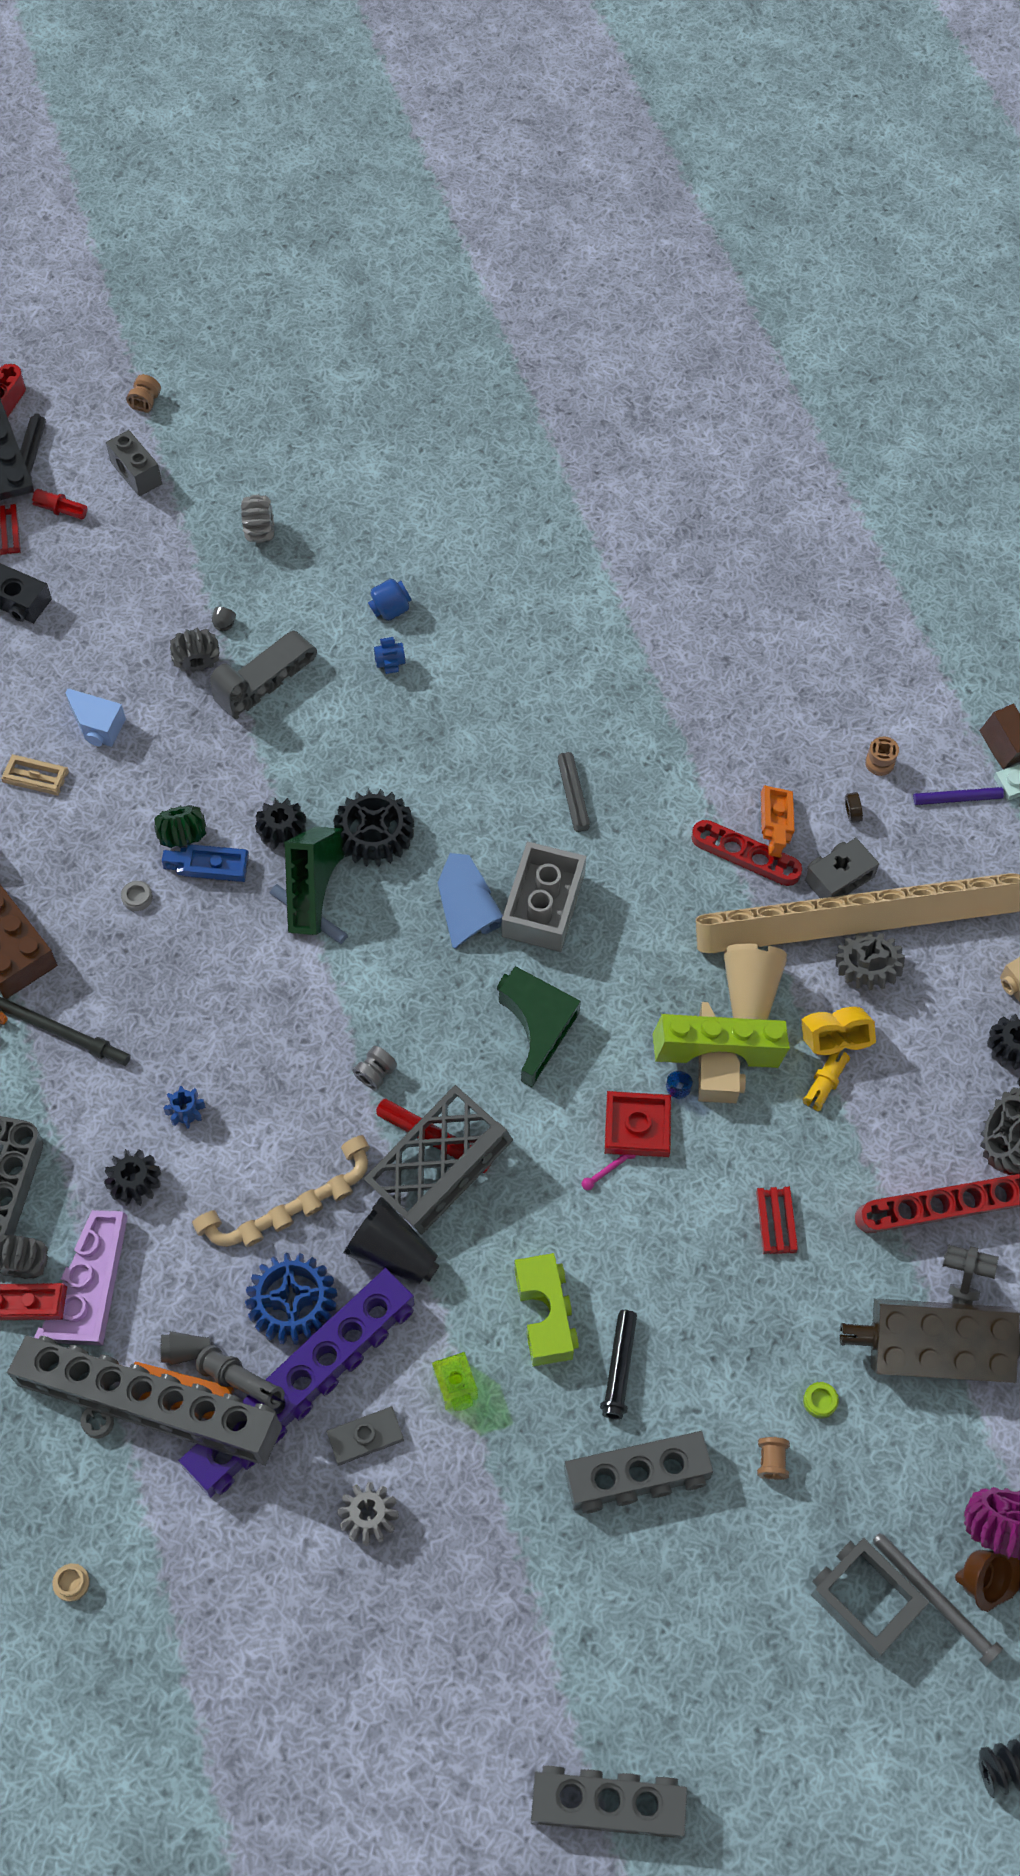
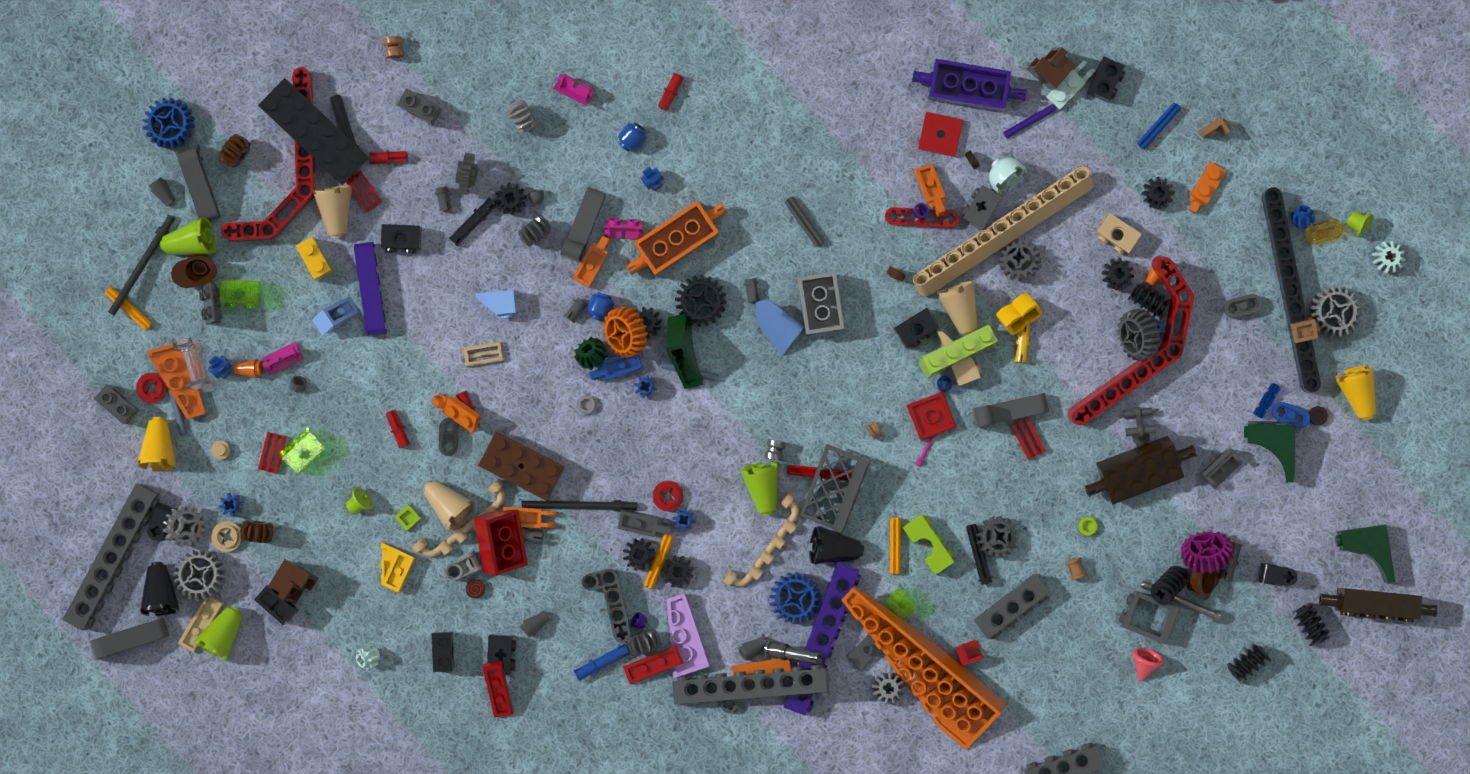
camera: 20 degrees left, 25 degrees up
(32, 1225) = (641, 621): none -> dark purple hinge
(96, 1134) = (632, 551): none -> black gear
(102, 568) = (443, 198): none -> dark grey pin
(120, 1086) = (643, 523): none -> dark grey hinge
(121, 614) = (471, 223): none -> black pin
(128, 1140) = (658, 561): none -> light orange axle
(145, 549) = (466, 173): none -> dark grey gear
(184, 1053) = (666, 486): none -> red gear
(186, 606) = (516, 194): none -> black gear
(193, 770) = (575, 309): none -> dark grey pin
(229, 776) = (600, 305): none -> blue head
(229, 910) = (640, 386): none -> blue gear
(243, 813) = (625, 332): none -> orange gear
(250, 722) = (592, 262): none -> orange hinge
(327, 704) = (615, 227): none -> dark pink hinge
(328, 1106) = (762, 485): none -> lime cone
(351, 526) = (581, 93): none -> dark pink hinge
(381, 734) = (676, 238): none -> orange brick
(455, 841) = (752, 290): none -> dark grey pin
(463, 1558) = (946, 689): none -> orange wedge
(470, 572) = (670, 91): none -> red axle
(490, 1292) = (895, 545): none -> light orange axle
(530, 1518) = (968, 652): none -> red panel
(539, 1104) = (874, 430): none -> medium nougat bush
(544, 1014) = (853, 376): dark green arch -> none
(656, 1359) = (1002, 543): none -> dark grey gear
(674, 906) = (896, 274): none -> reddish brown tile
(683, 978) = (925, 320): none -> black brick
(754, 834) = (923, 208): none -> dark purple hinge
(764, 1162) = (1010, 410): none -> dark grey beam
(820, 762) = (940, 134): none -> red tile
(833, 1678) = (1146, 662): none -> coral hat
(882, 763) = (973, 114): medium nougat wheel -> none
(883, 705) = (969, 85): none -> dark purple brick
(903, 838) = (1006, 173): none -> light aqua cylinder
(926, 1553) = (1169, 585): none -> black piece

